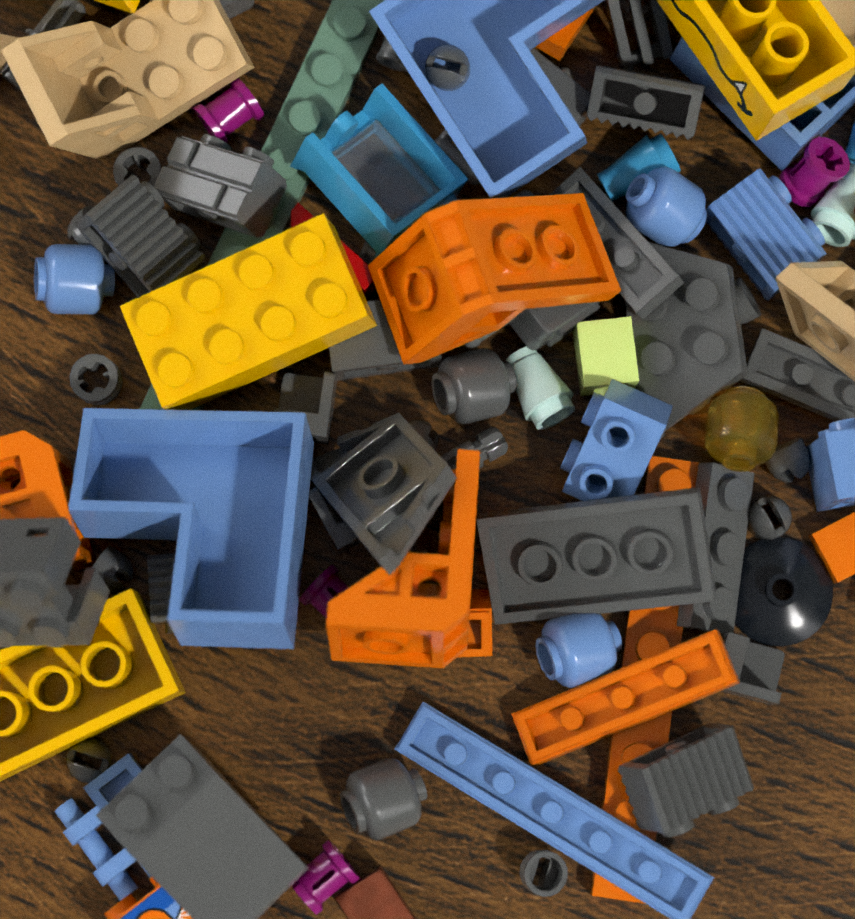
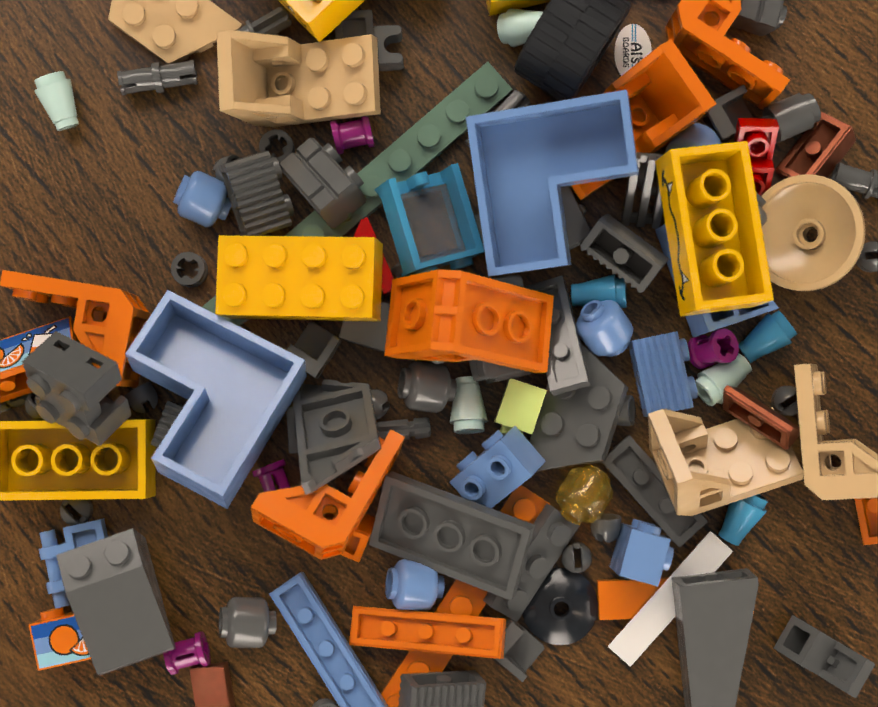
camera: 30 degrees right, 5 degrees up
(445, 79) = (506, 166): dark grey hinge -> none

